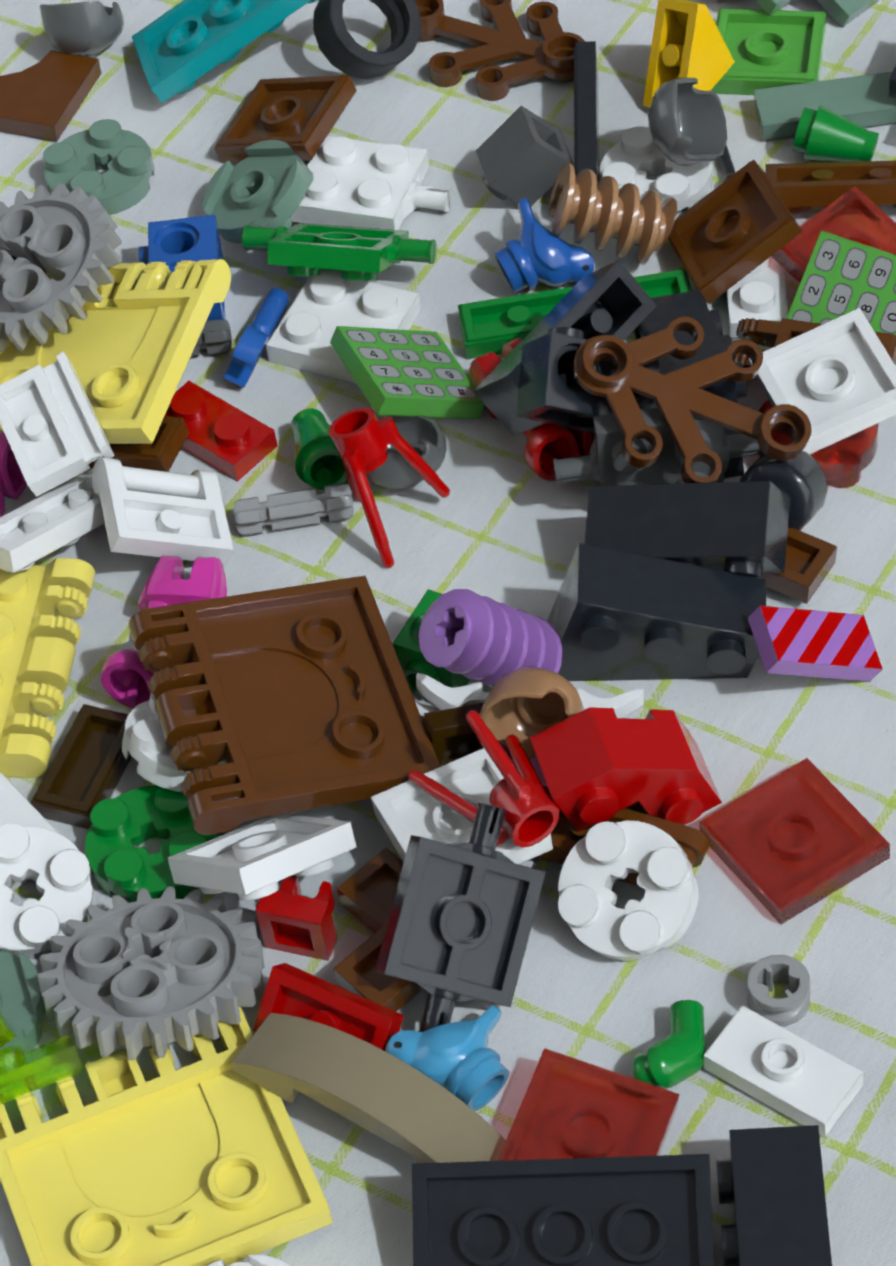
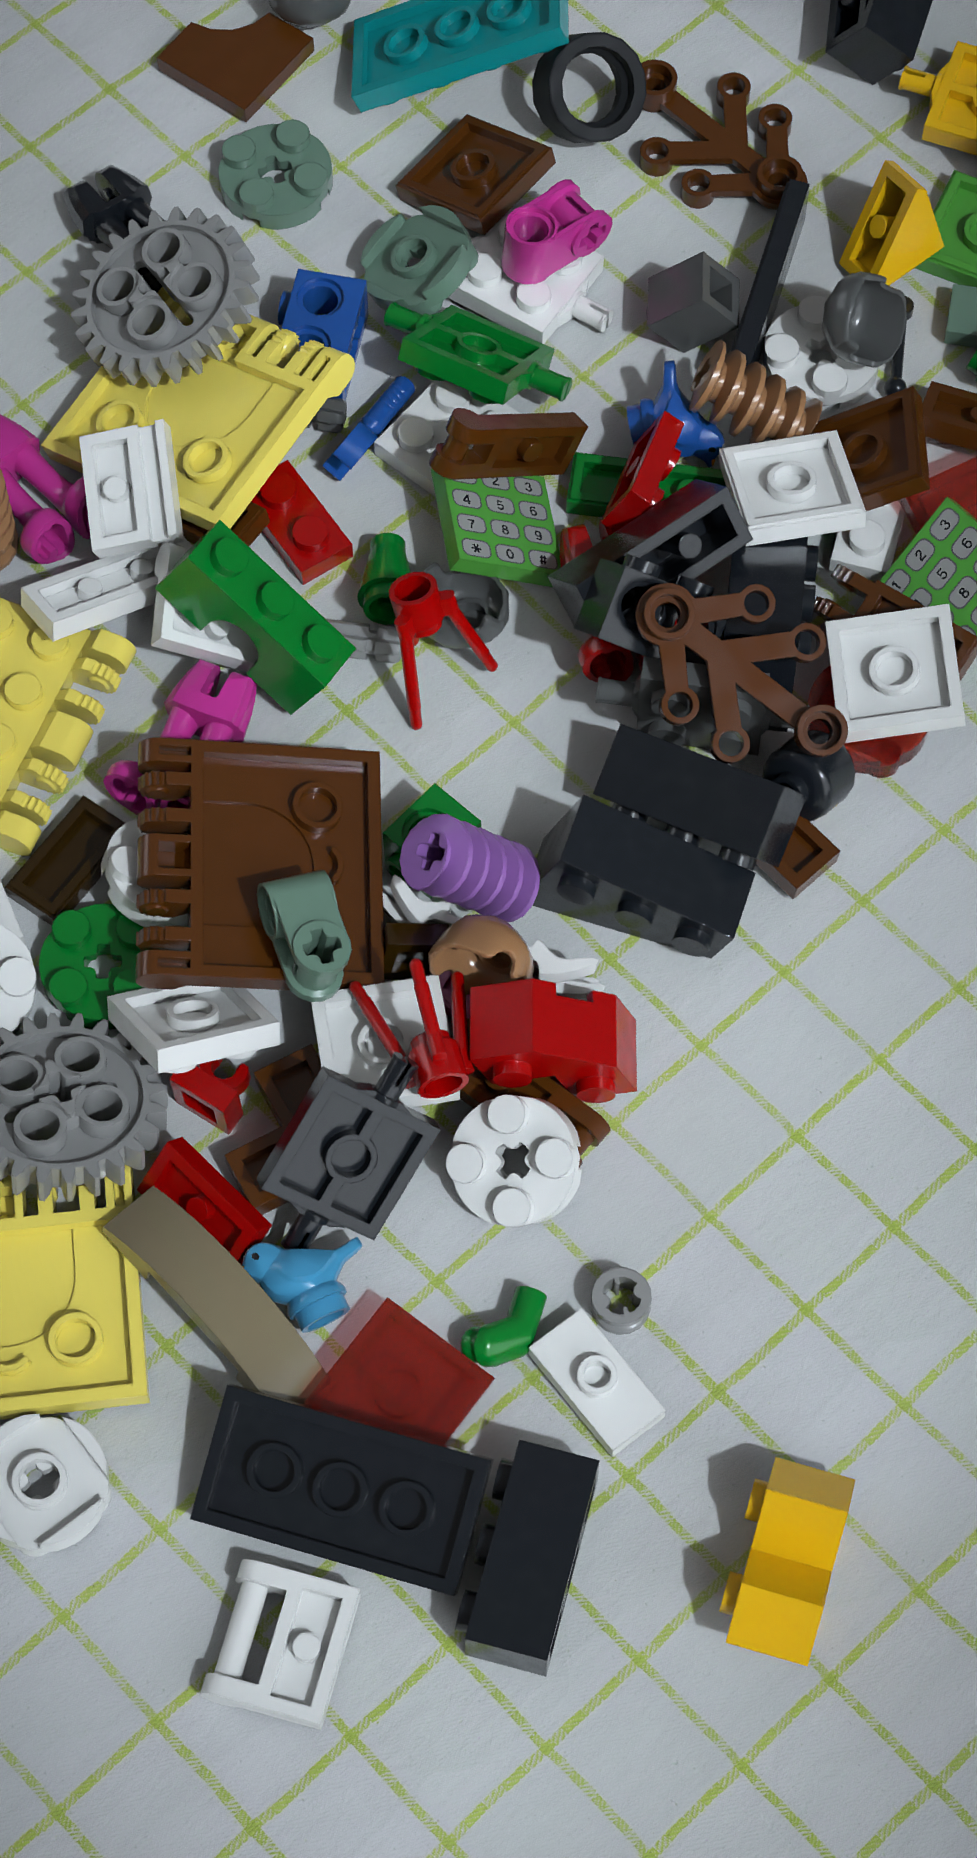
camera: 10 degrees right, 15 degrees up
(173, 465) = (233, 584): none -> green arch
(351, 734) = (306, 933): none -> sand green piece
(375, 135) = (551, 233): none -> dark pink piece
(396, 300) = (507, 444): none -> reddish brown plate
(532, 289) = (647, 465): none -> red plate
(681, 263) = (793, 487): none -> white plate
(794, 840) = (691, 1149): clear red tile -> none
(814, 643) = (778, 955): medium lavender tile -> none

